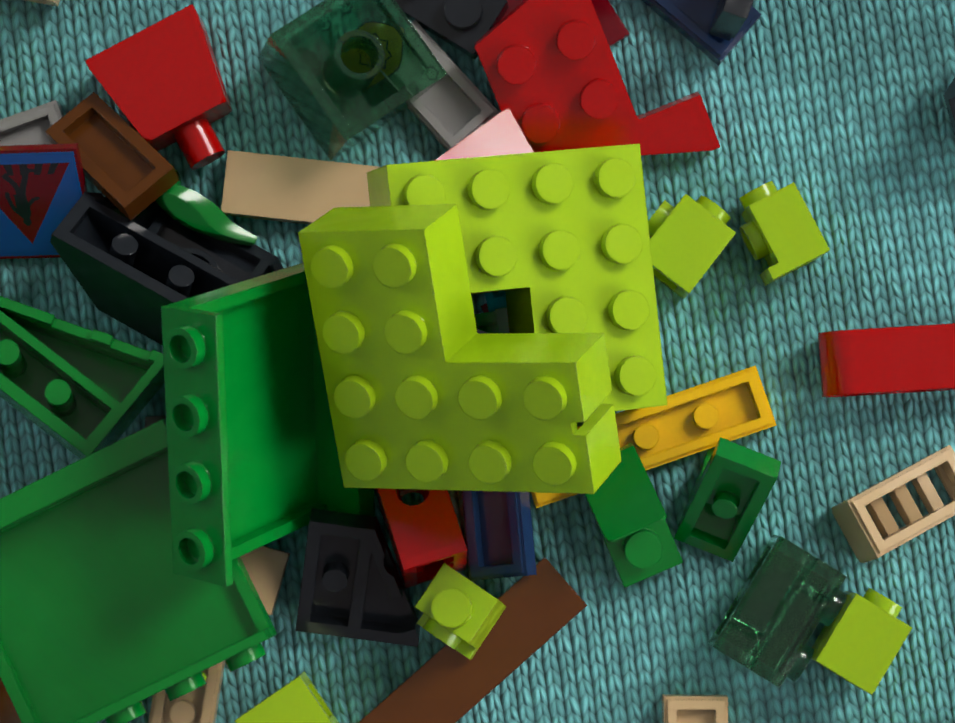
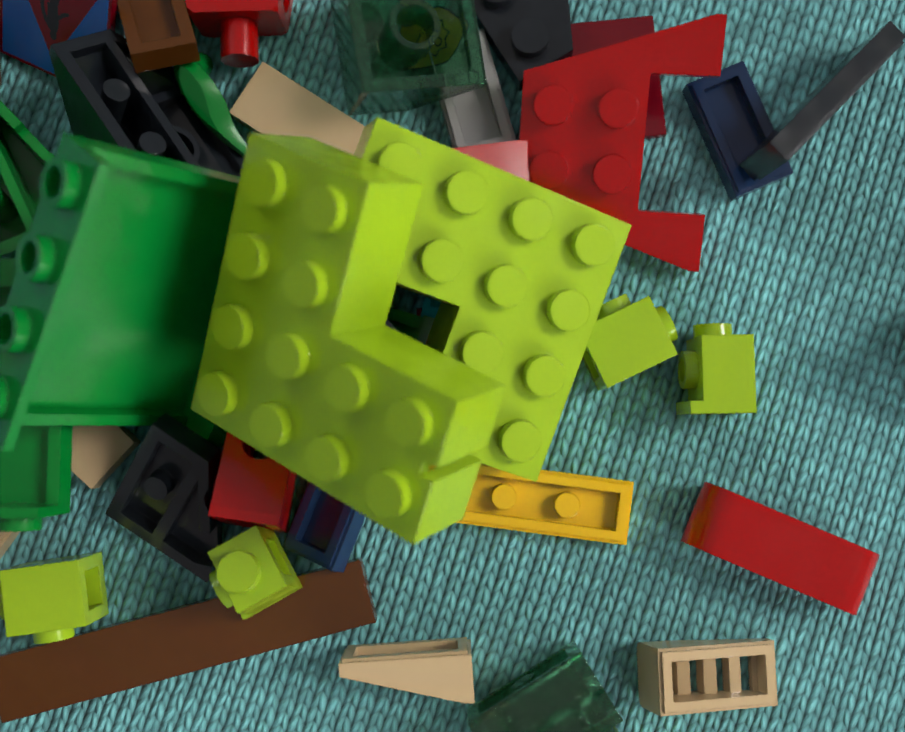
camera: 30 degrees right, 0 degrees up
(633, 521) = (454, 570): green slope -> none
(657, 619) = (422, 667): none -> tan slope
(726, 498) = (550, 590): green slope -> none

